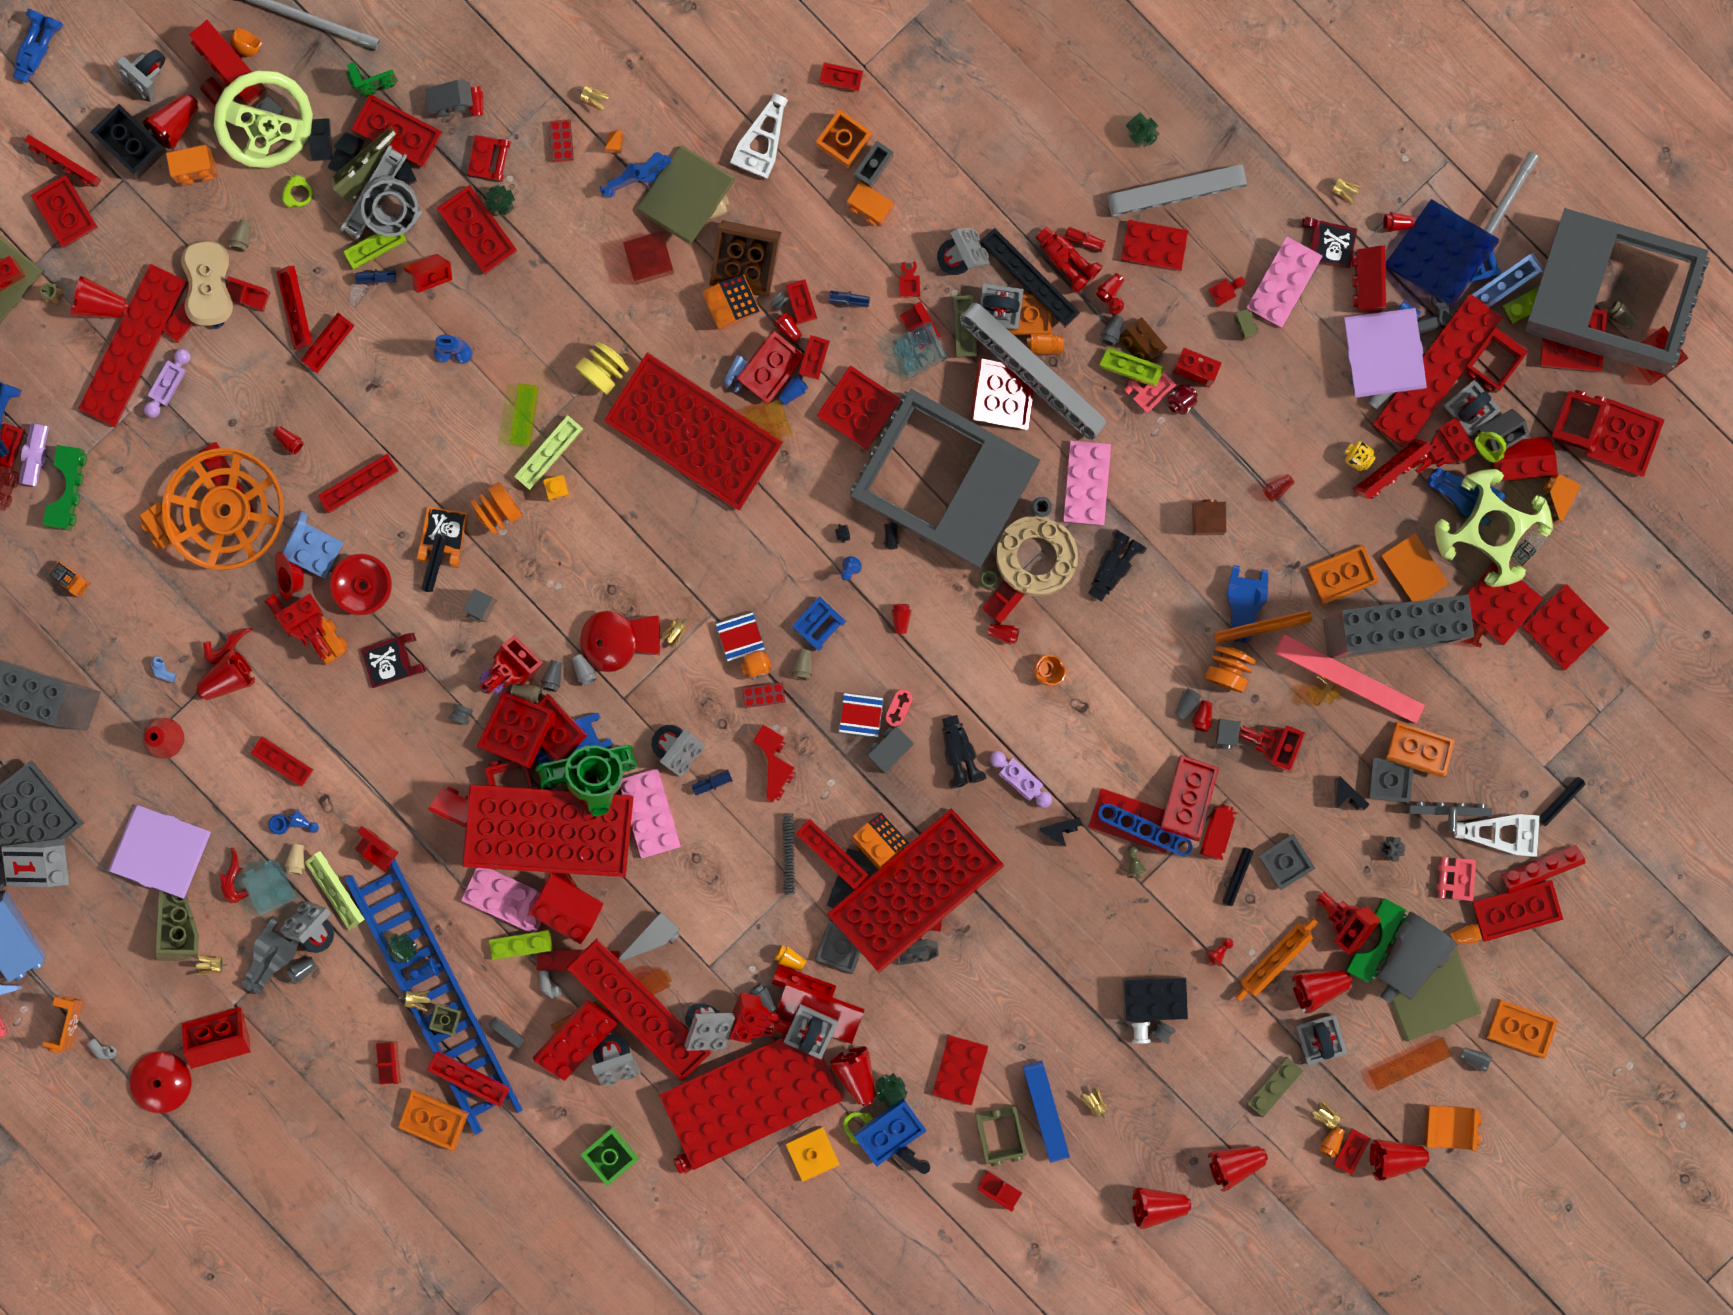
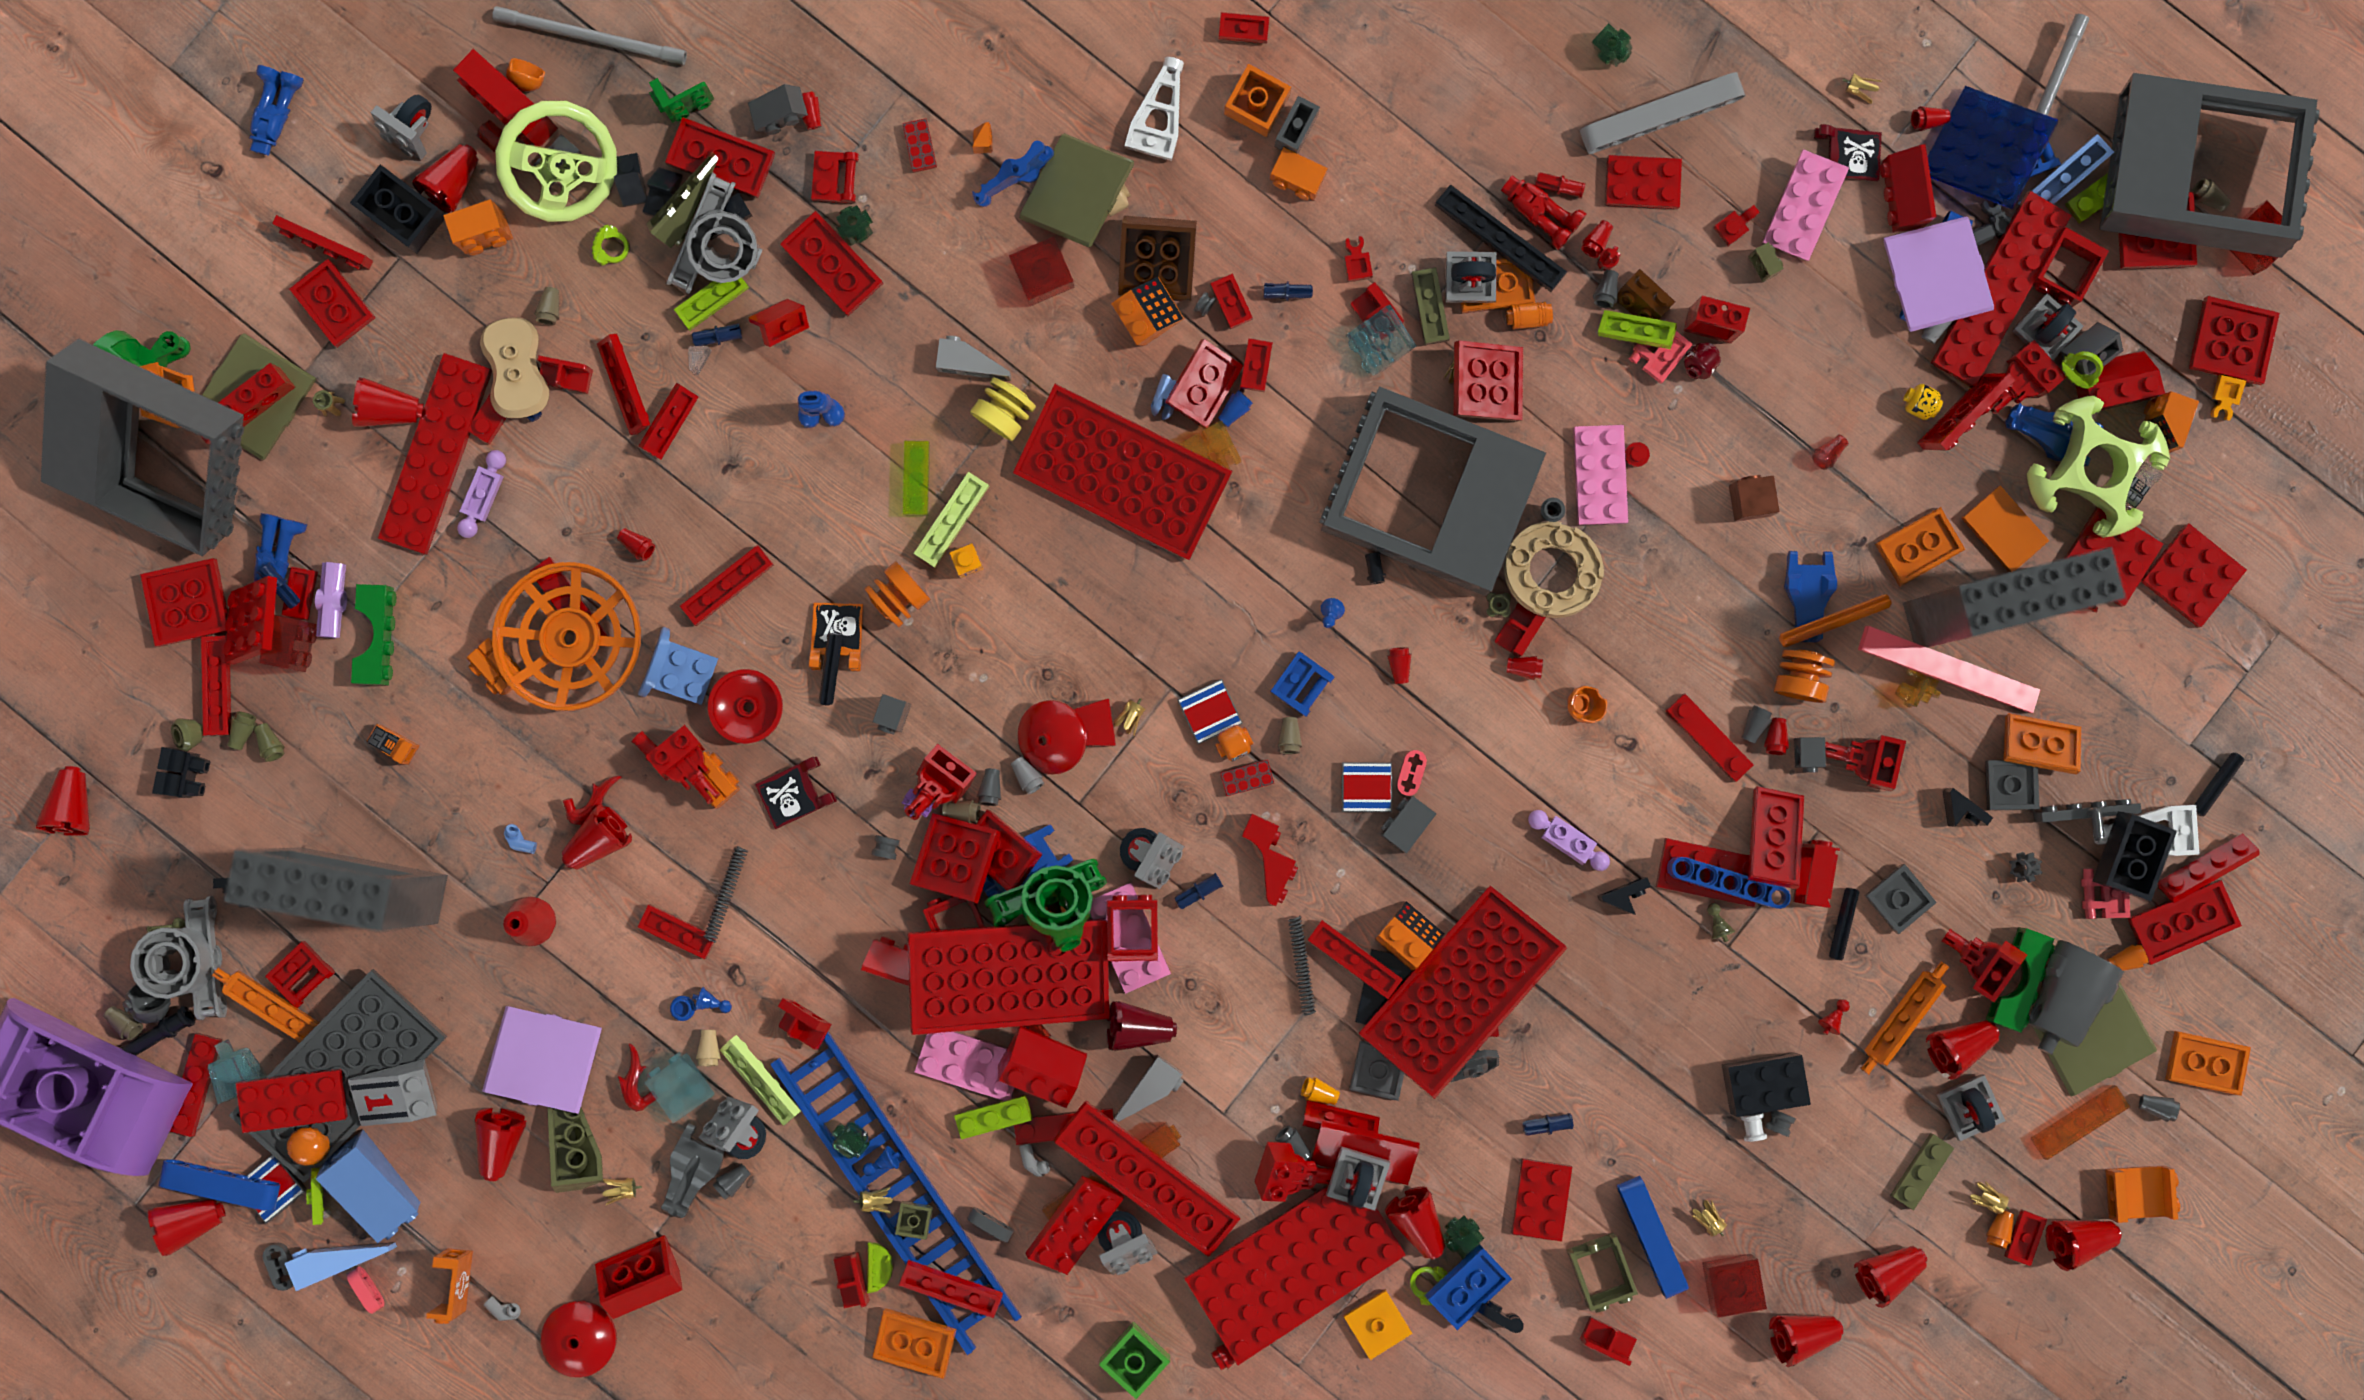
camera: 15 degrees left, 0 degrees up
(115, 912) = (497, 1140): none -> red cone
(289, 576) = (657, 707): red piece -> none
(309, 761) = (708, 934): none -> dark grey piece
(412, 1055) = (879, 1267): none -> lime plate
(573, 321) = (962, 359): none -> light grey slope
(589, 94) = (944, 84): pearl gold piece -> none
(647, 886) = (1137, 1027): none -> dark red cone
(665, 784) = (1142, 902): none -> red window
(707, 1028) = (1233, 1189): light grey plate -> none
(788, 327) = (1218, 333): red cone -> none
(842, 533) = (1316, 572): black plate -> none
(858, 407) = (1316, 419): red plate -> none
(958, 751) = (1492, 814): black piece -> none
(962, 252) = (1415, 219): light grey plate -> none
(973, 1009) = (1548, 1124): none -> dark blue axle
(1033, 371) = (1520, 348): light grey beam -> none
(1107, 1159) = (1734, 1285): none -> clear red brick
(1112, 567) = (1645, 571): black piece -> none
(1119, 469) = (1637, 454): none -> red plate
(1148, 710) = (1709, 737): none -> red plate
(1479, 850) = (2134, 855): none -> black brick
(1574, 440) = (2179, 350): red window -> none
(1613, 479) = (2227, 392): none -> light orange plate

